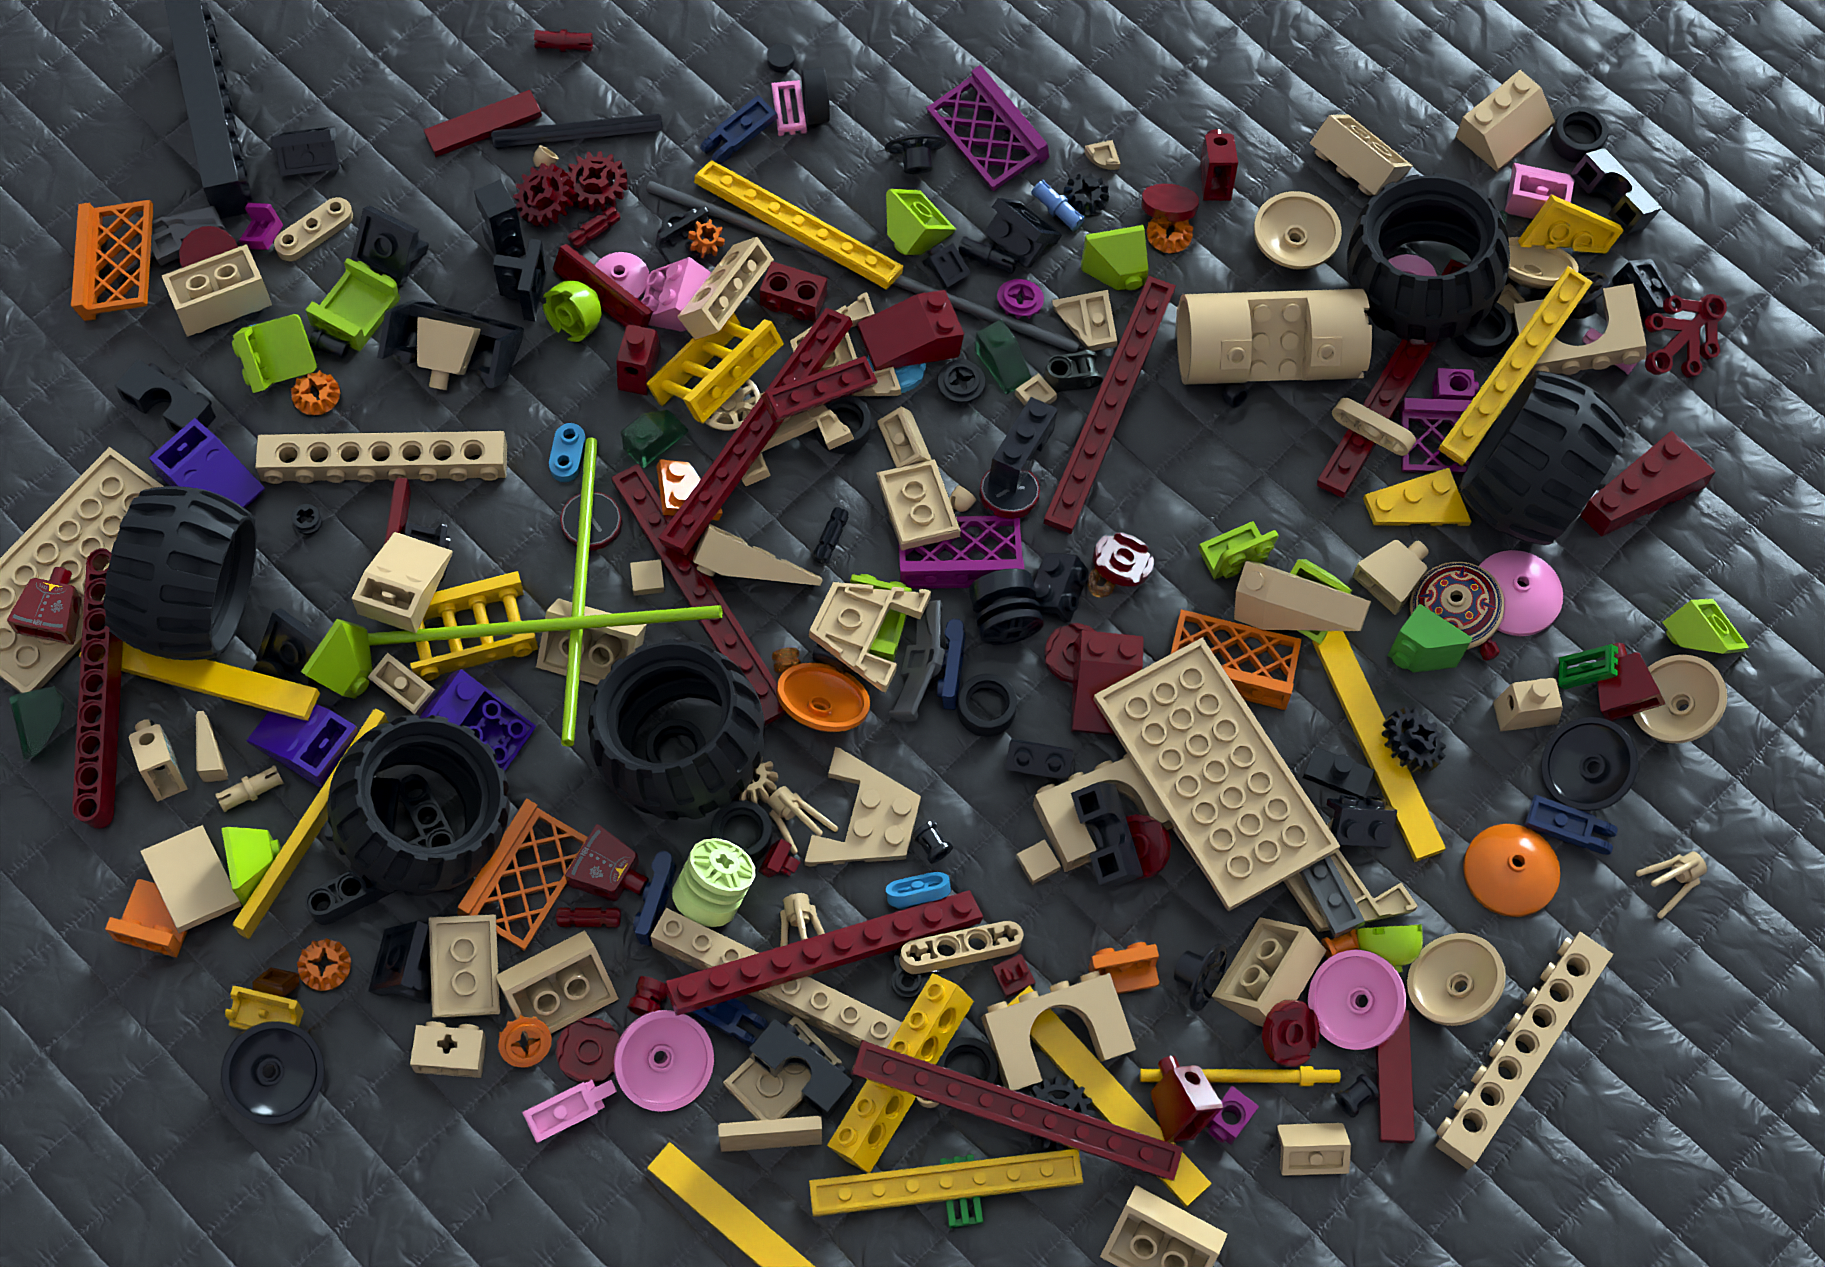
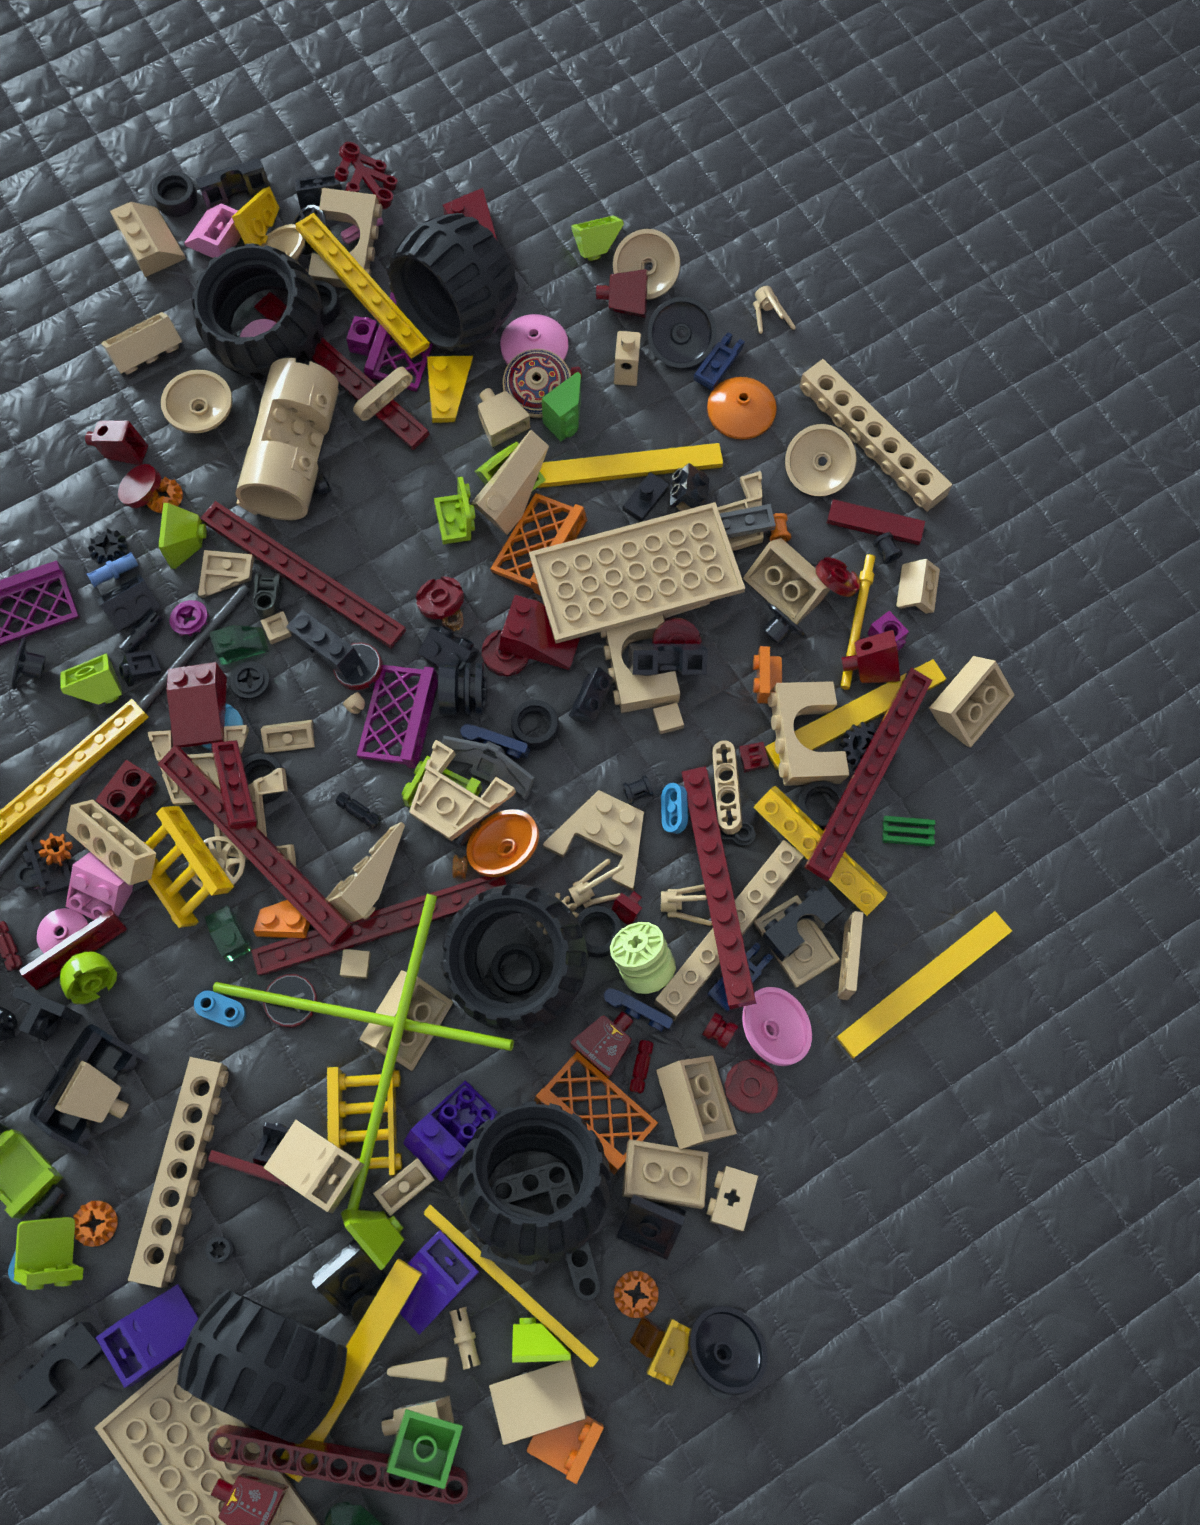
camera: 75 degrees left, 5 degrees up
(117, 755) = (424, 1449): none -> bright green slope
(536, 1048) = (741, 1126): orange gear -> none
(567, 1108) = (797, 1110): bright pink hinge -> none
(641, 351) = (150, 930): dark red torso -> none
(918, 504) = (350, 736): tan tile -> none
(945, 1182) = (903, 842): yellow tile -> none
(1103, 155) = (76, 526): tan tile -> none
(1336, 996) = (838, 531): bright pink dish -> none
(1394, 943) = (788, 493): lime cylinder -> none
(1413, 740) = (636, 438): black gear -> none
(1588, 672) = (613, 293): green tile -> none

